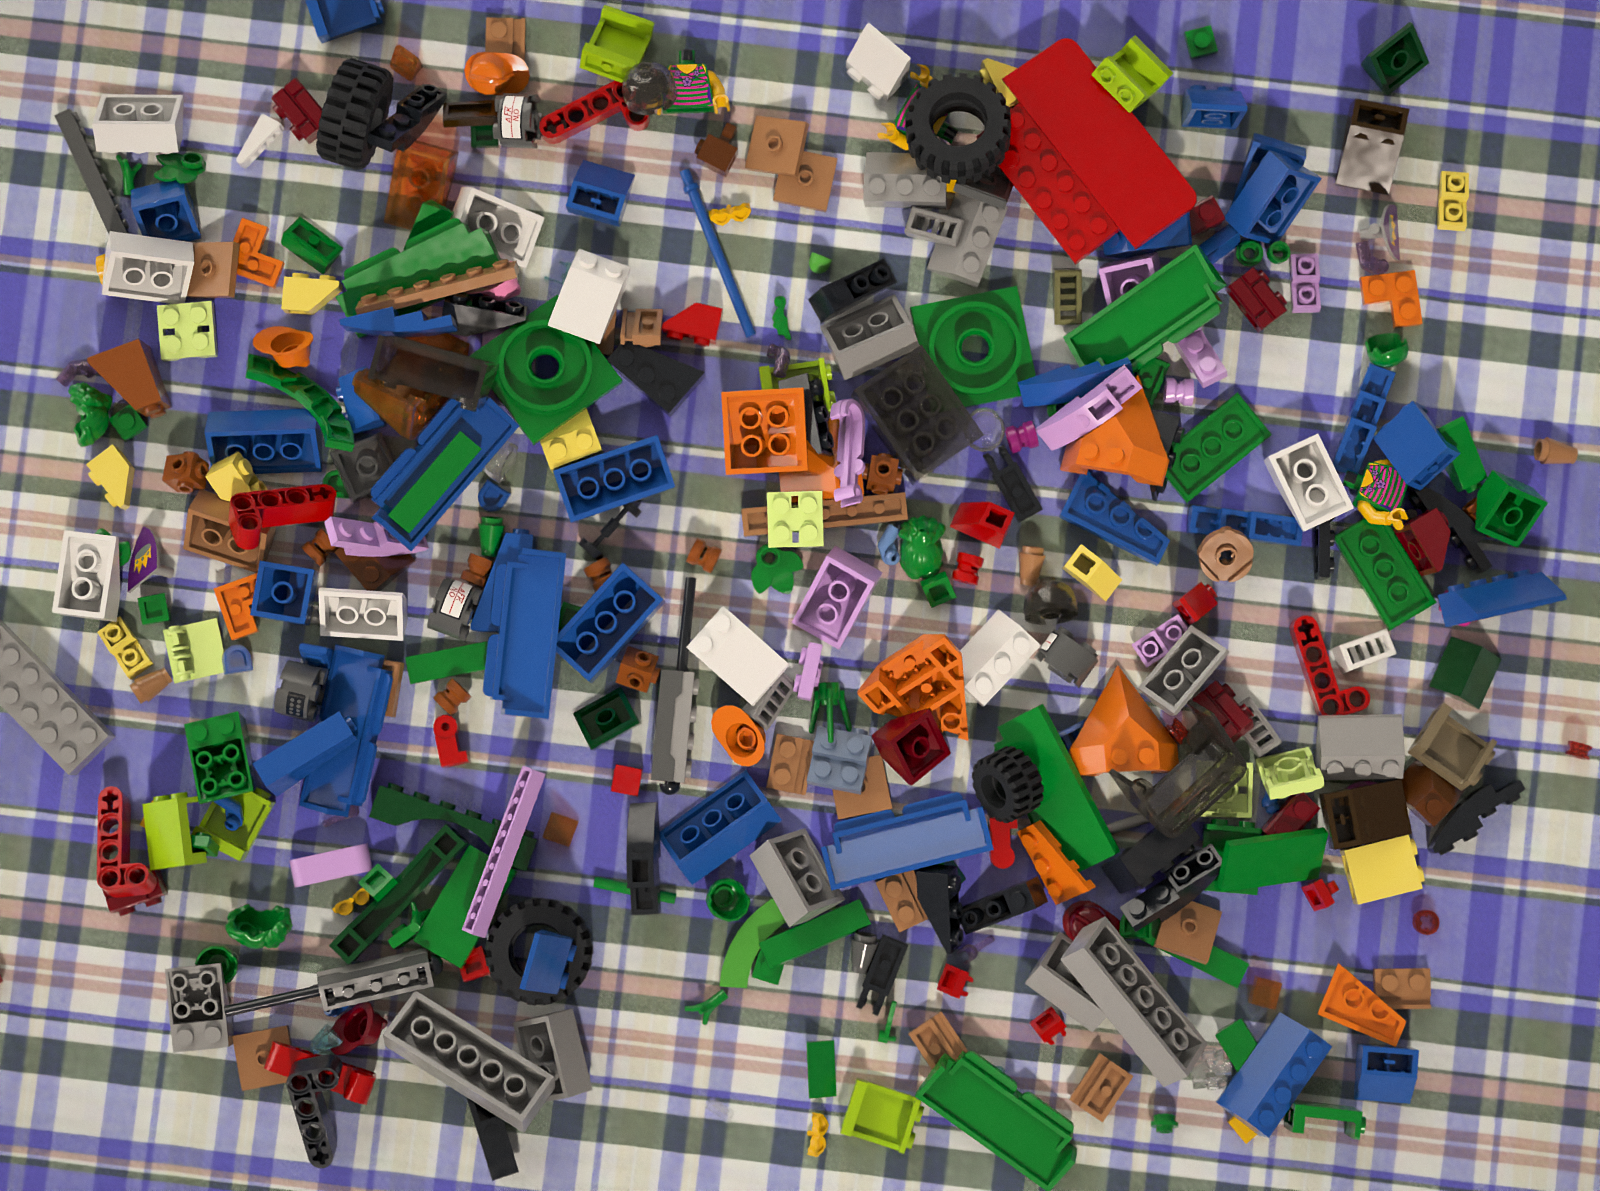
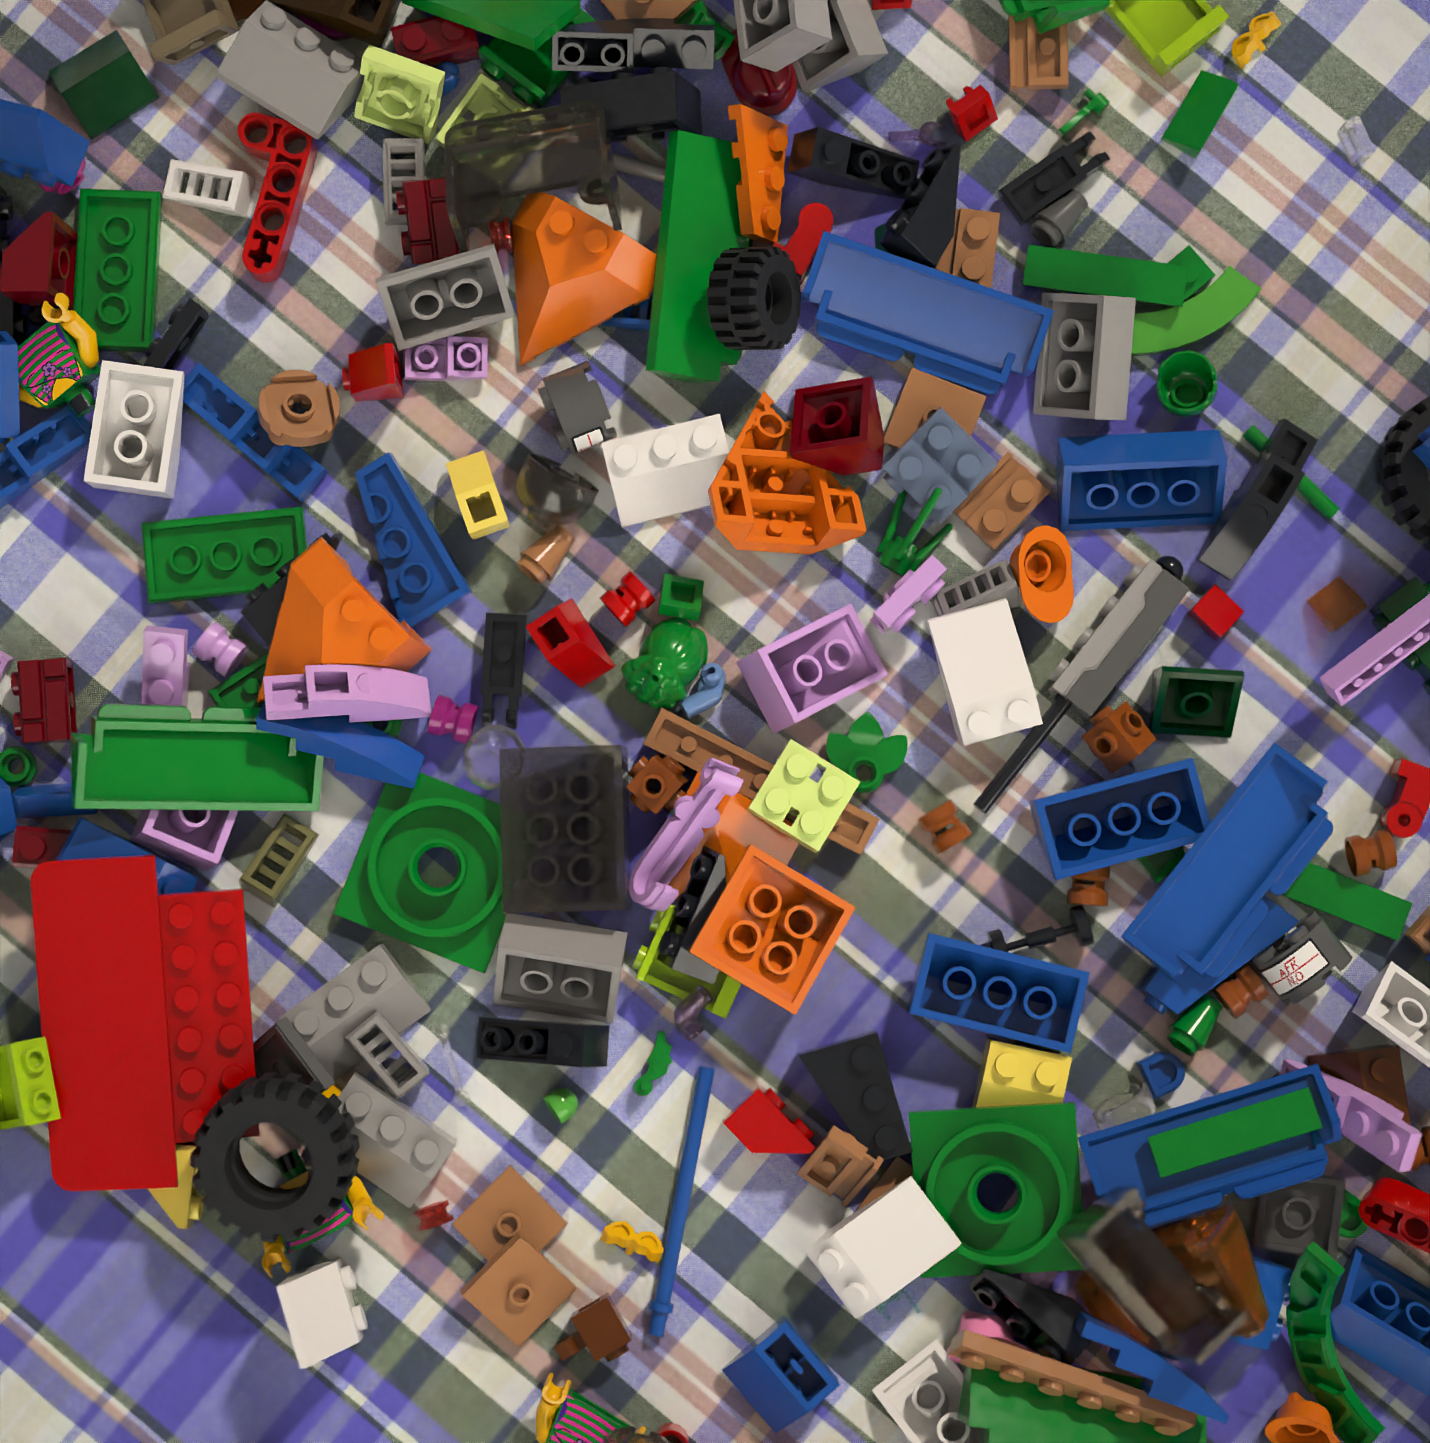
camera: 150 degrees left, 0 degrees up
(708, 1006) = (1289, 275): green bar -> none
(850, 156) = (433, 1215): none -> clear red bush
(878, 232) = (461, 1097): none -> clear hinge

